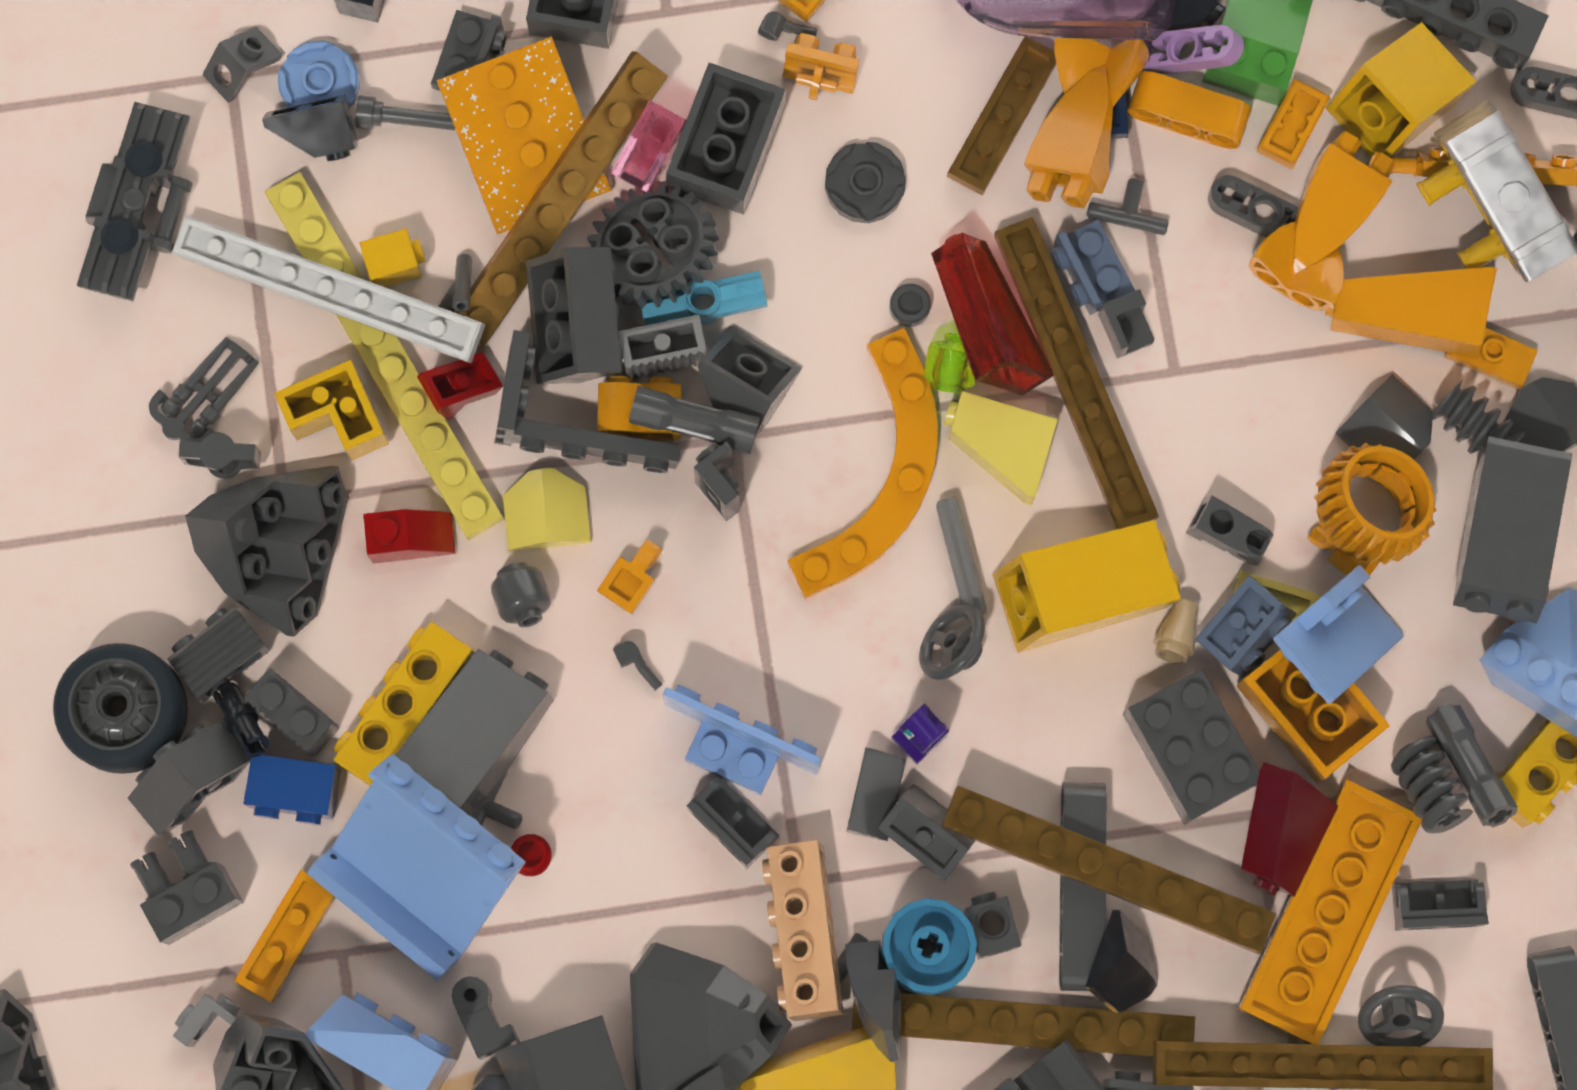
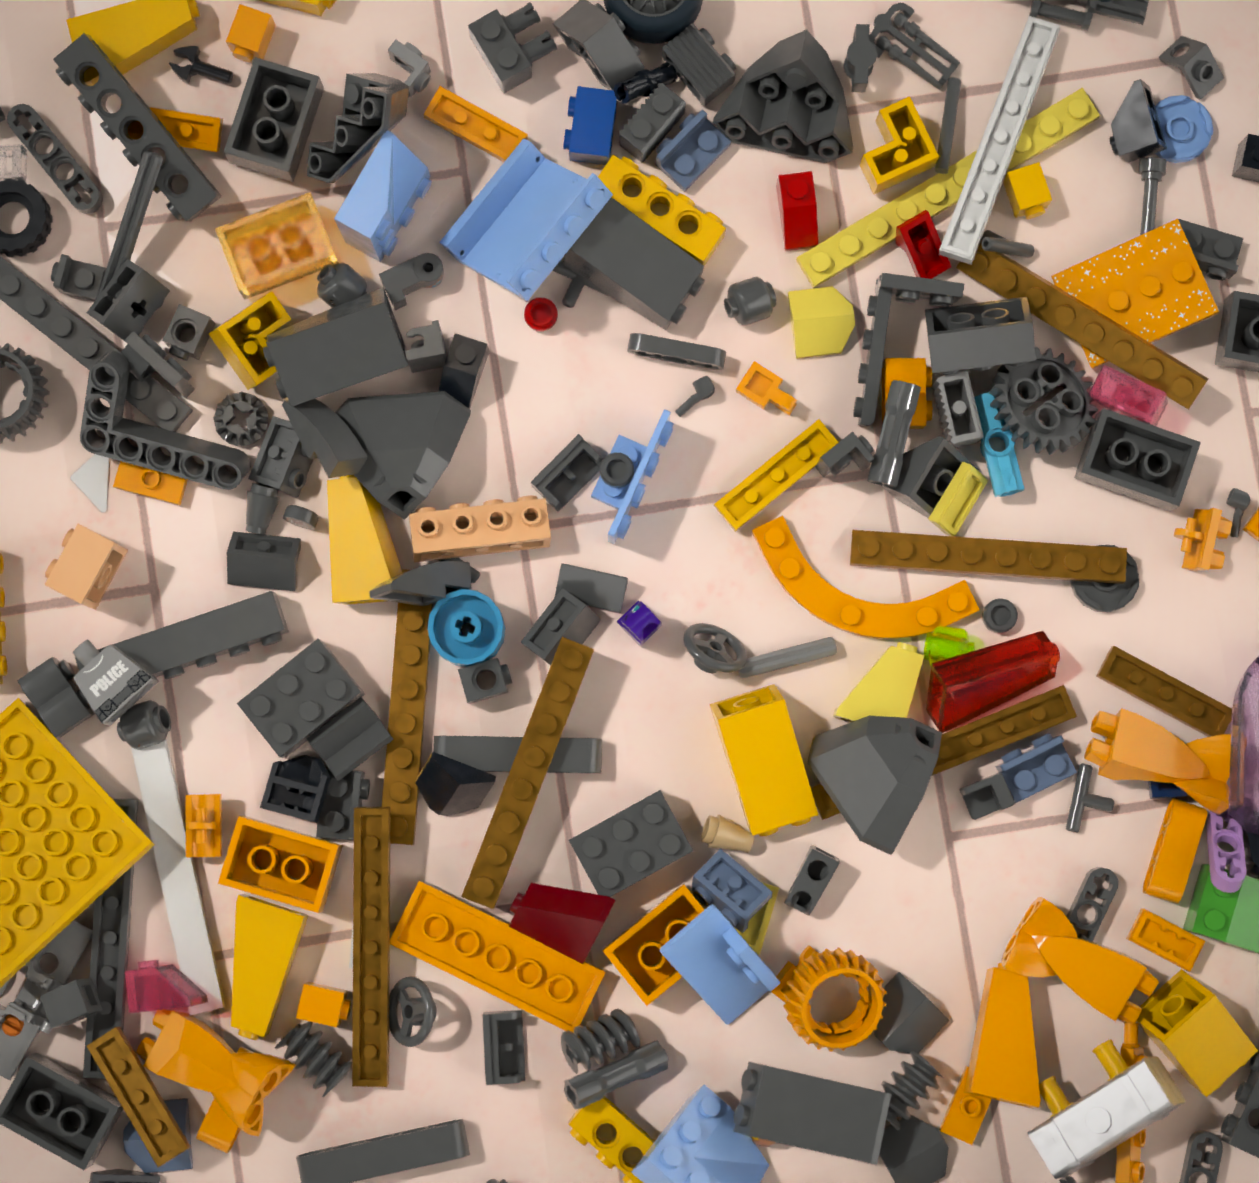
camera: 90 degrees right, 5 degrees up
(305, 351) = (948, 125): none -> dark grey bar
(329, 664) = (691, 150): none -> sand blue bracket
(569, 987) = (428, 352): none -> dark grey hinge
(581, 686) = (676, 351): none -> dark grey beam
(600, 951) = (464, 368): none -> black slope
(731, 759) = (616, 470): none -> dark grey tile
(738, 565) = (775, 475): none -> yellow plate
(770, 349) = (958, 499): none -> light yellow tile
(839, 317) = (988, 556): none -> pearl gold plate
(1107, 447) = (876, 773): none -> dark grey brick

